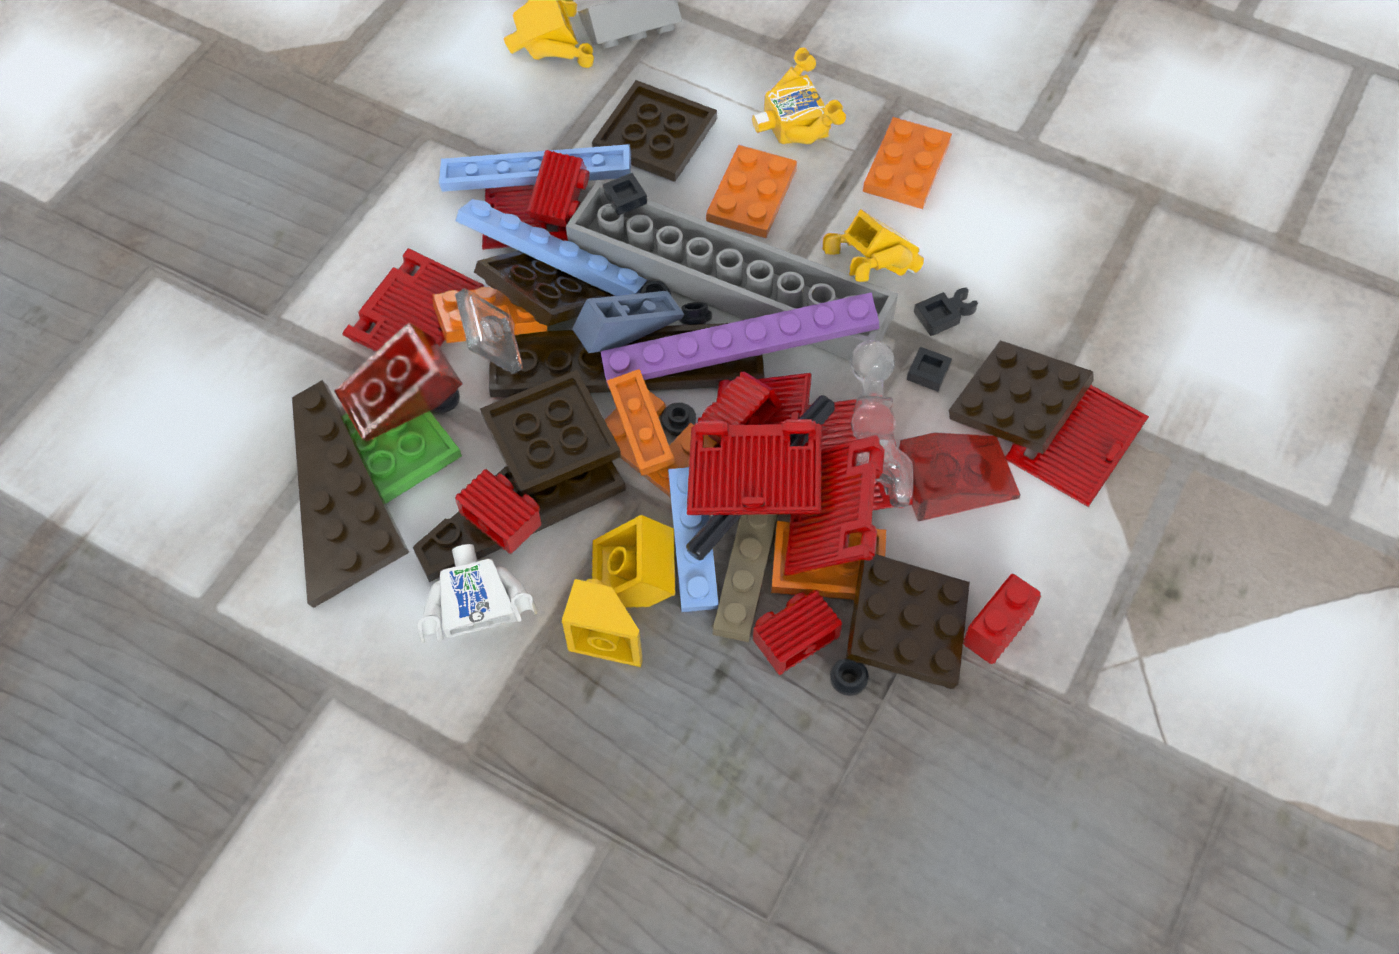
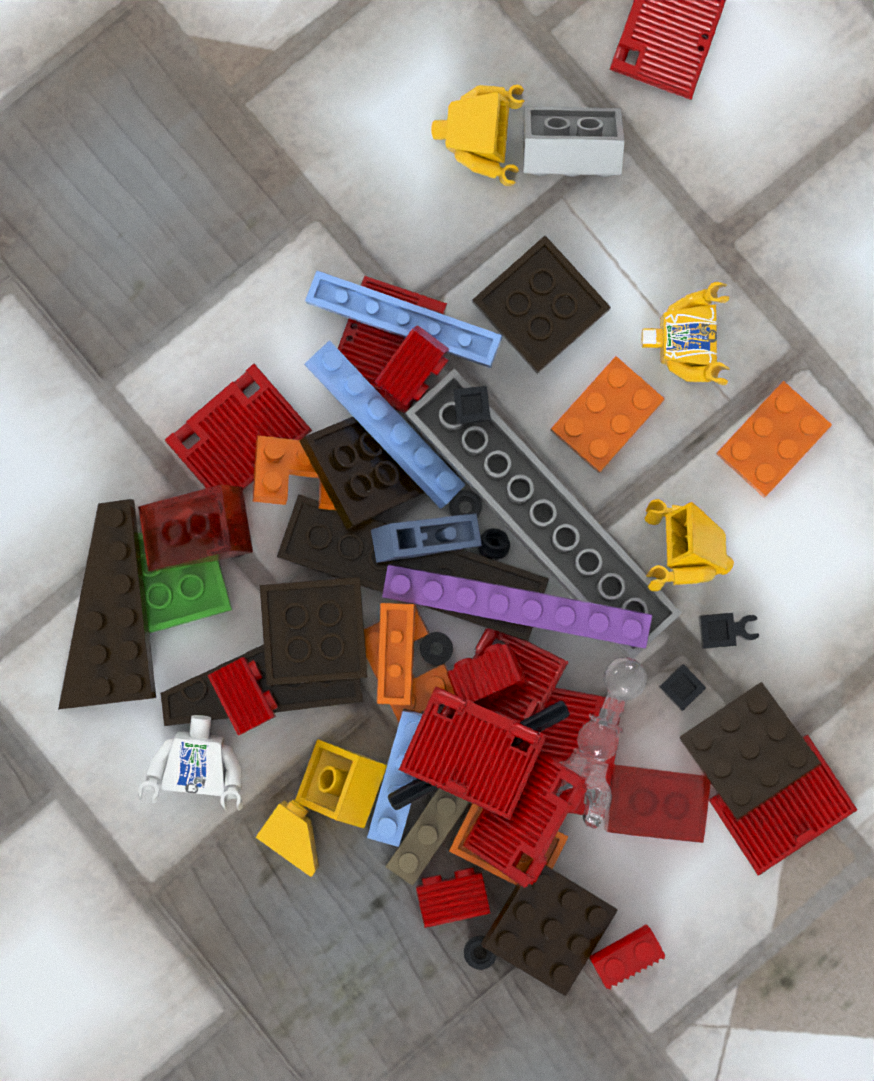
camera: 20 degrees right, 25 degrees up
(488, 331) = (292, 510): clear plate -> none

